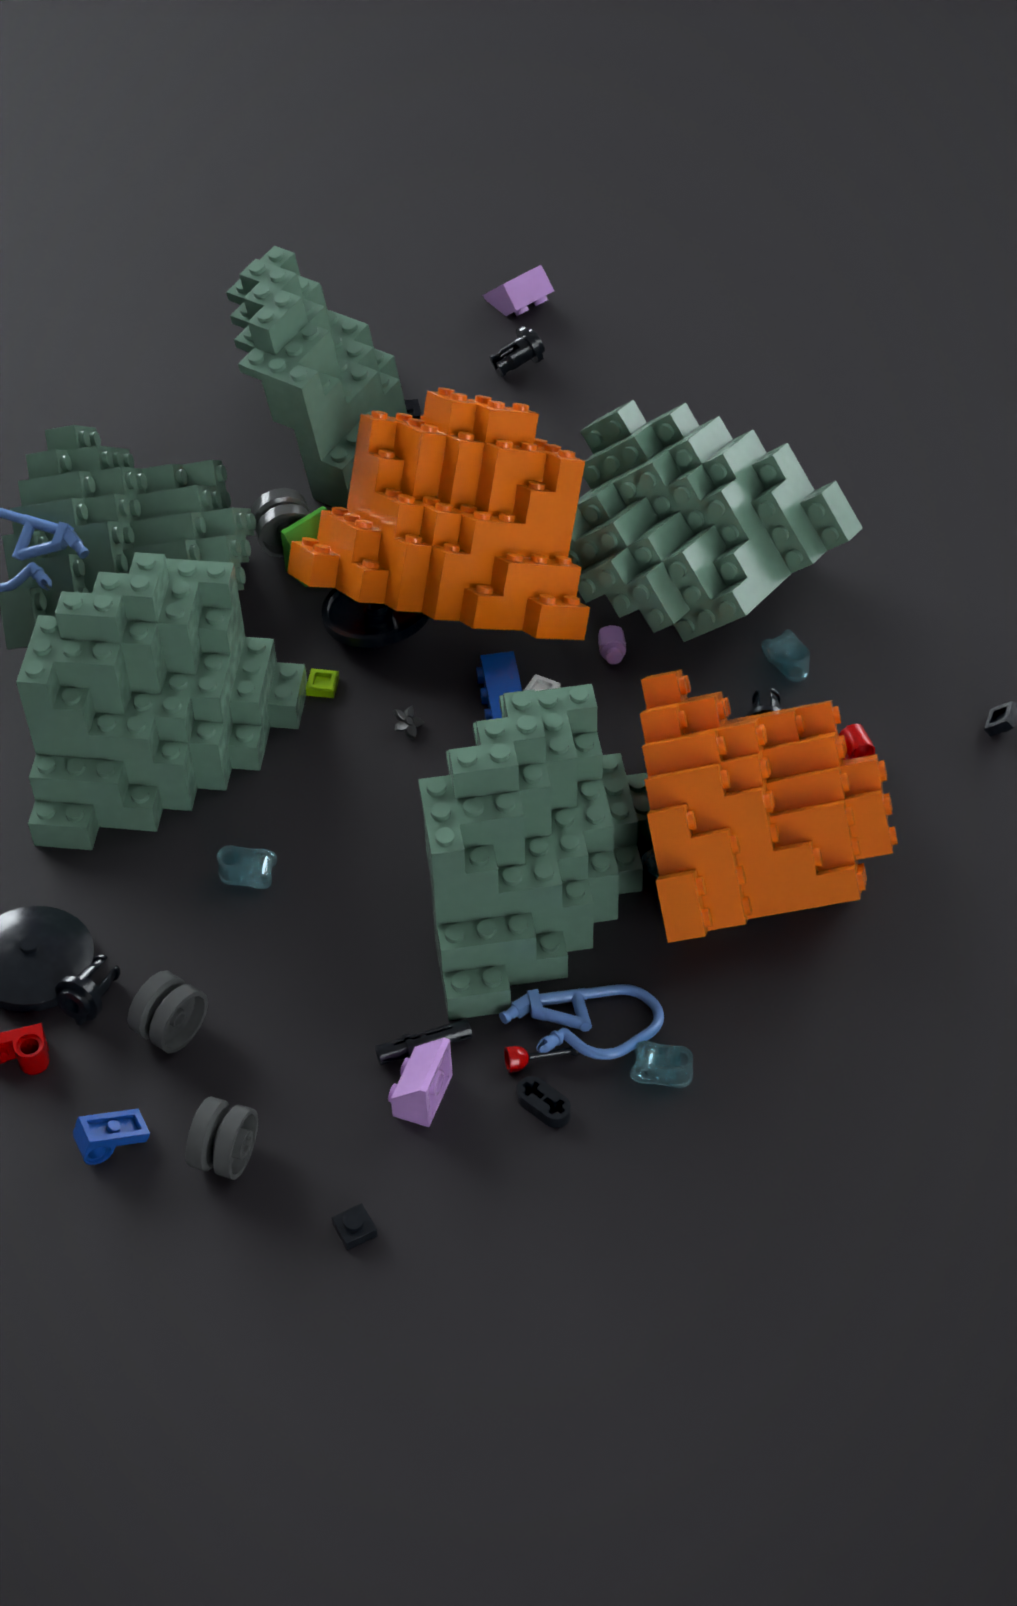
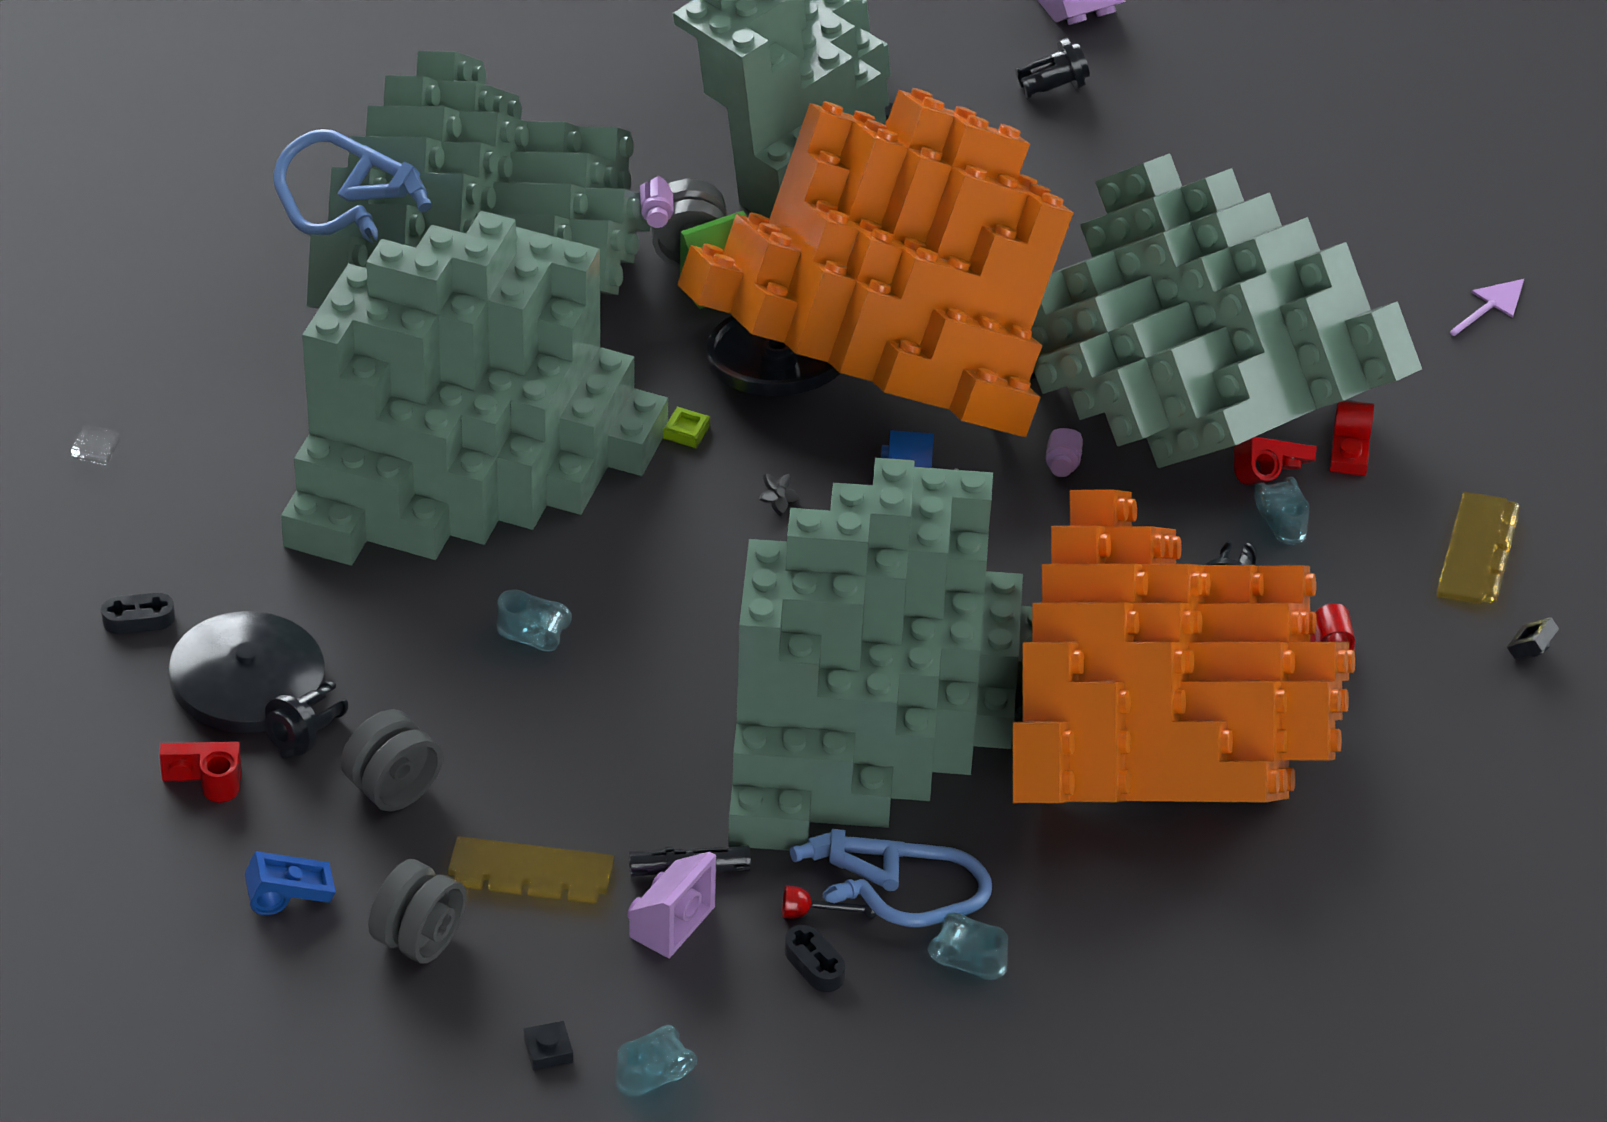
camera: 10 degrees right, 5 degrees down
(257, 512) = (656, 202): none -> lavender arm
(302, 1072) = (542, 868): none -> clear yellow windscreen
(447, 1218) = (652, 1061): none -> clear light blue piece
(768, 618) = (1272, 457): none -> red plate
(818, 591) = (1351, 437): none -> red plate
(889, 458) = (1500, 296): none -> lavender piece
(937, 656) = (1478, 548): none -> clear yellow windscreen

